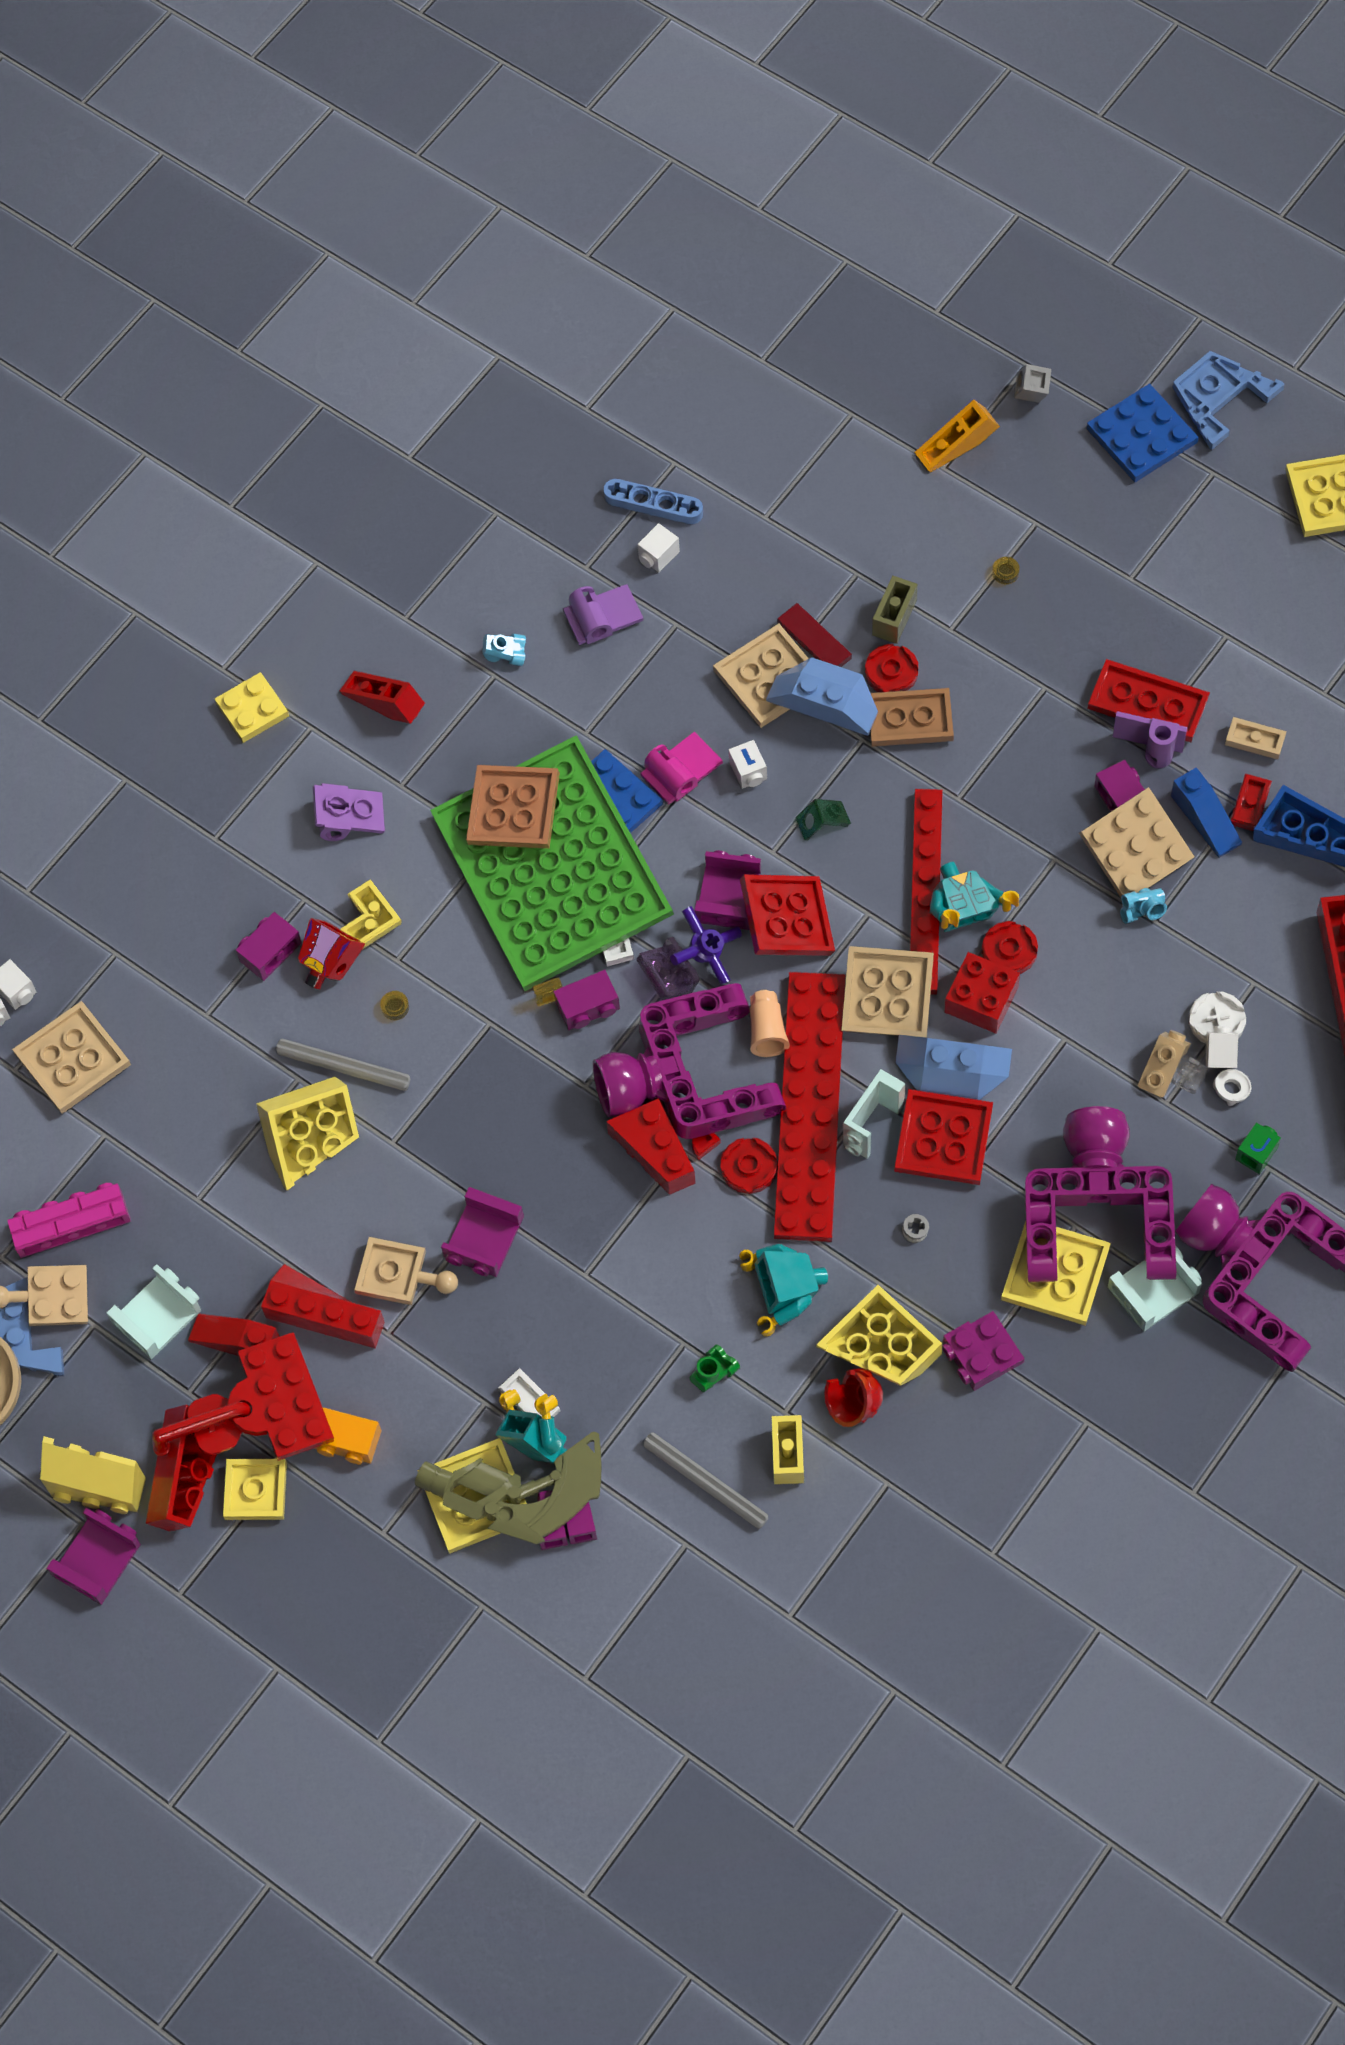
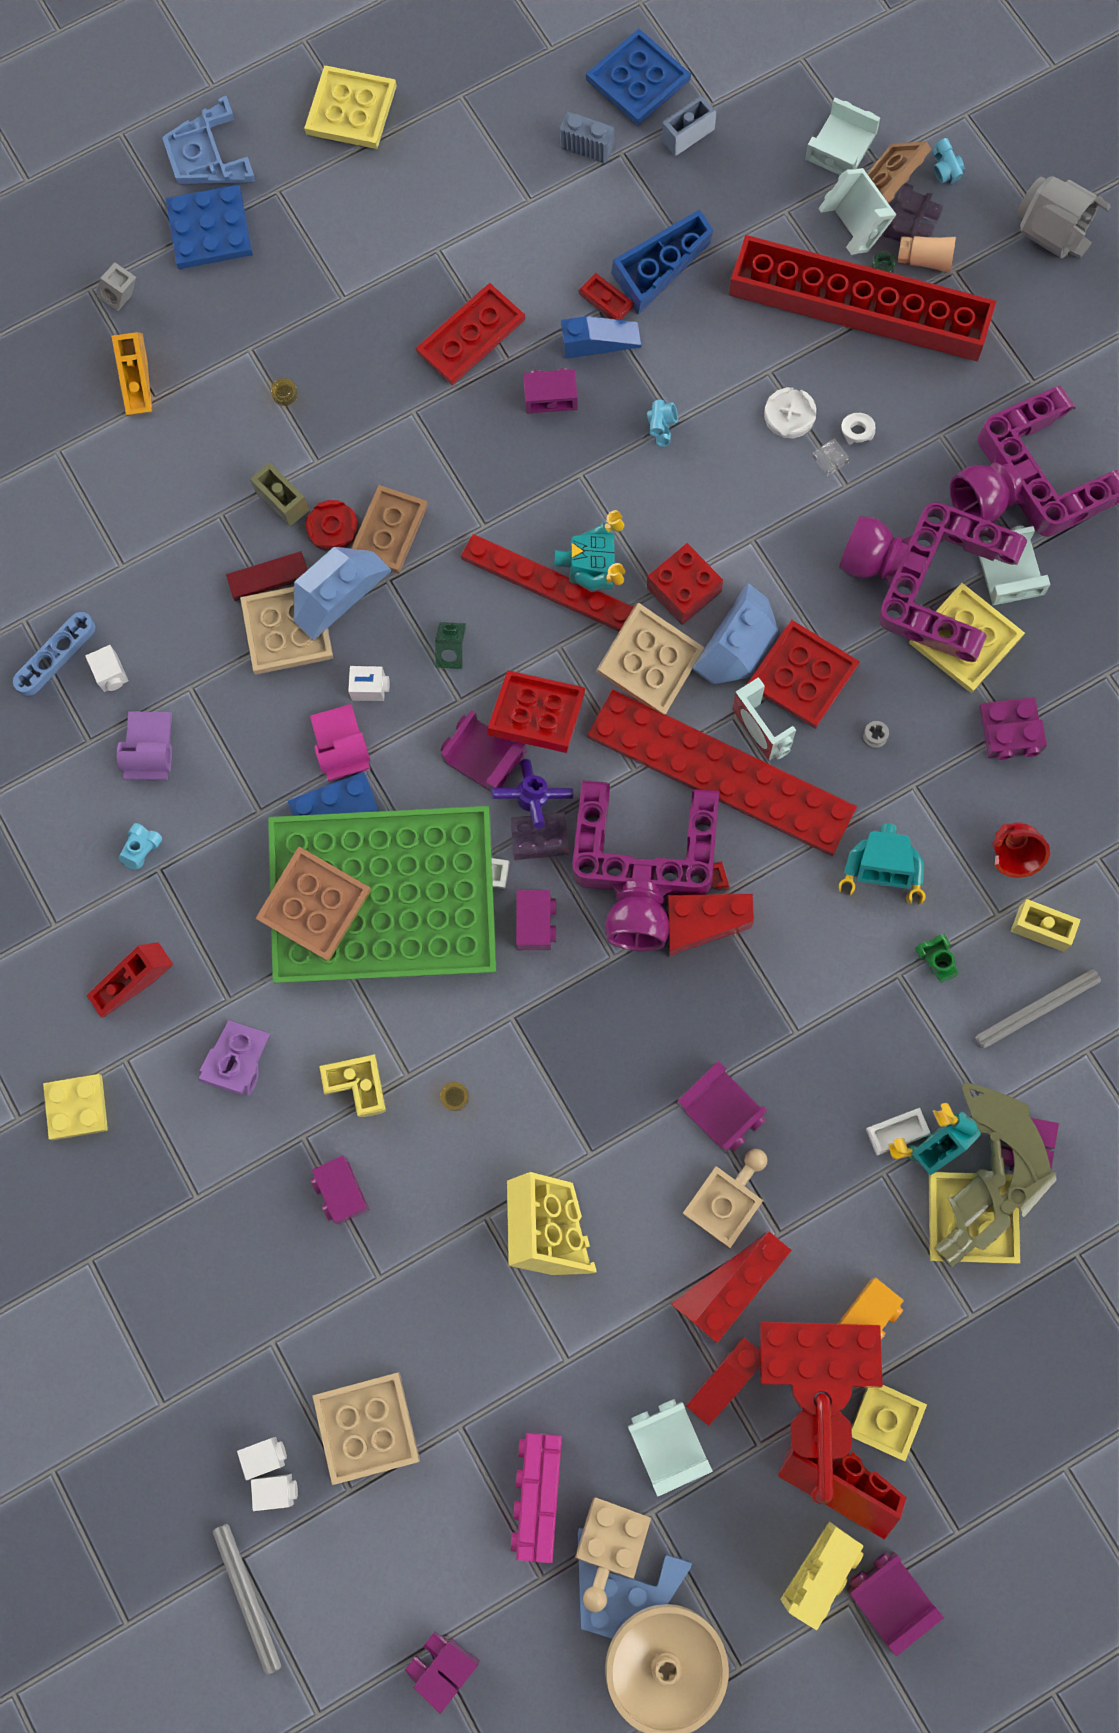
camera: 65 degrees left, 10 degrees up
(327, 952) = (376, 1136): red torso -> none
(343, 1064) = (493, 1168): light grey axle -> none
(544, 992) = (510, 951): clear yellow tile -> none
(749, 1165) = (755, 848): red tile -> none
(767, 1026) = (631, 774): light nougat plant -> none
(883, 1339) = (977, 803): light yellow wedge -> none
(1010, 946) = (647, 545): red tile -> none
(1136, 844) = (606, 400): tan plate -> none
(1159, 736) = (515, 339): medium lavender piece -> none
(1163, 1062) = (815, 468): tan bracket -> none
(1221, 1048) = (825, 418): white brick -> none
(1255, 738) = (548, 267): tan plate -> none
(1258, 1147) = (925, 431): green brick -> none

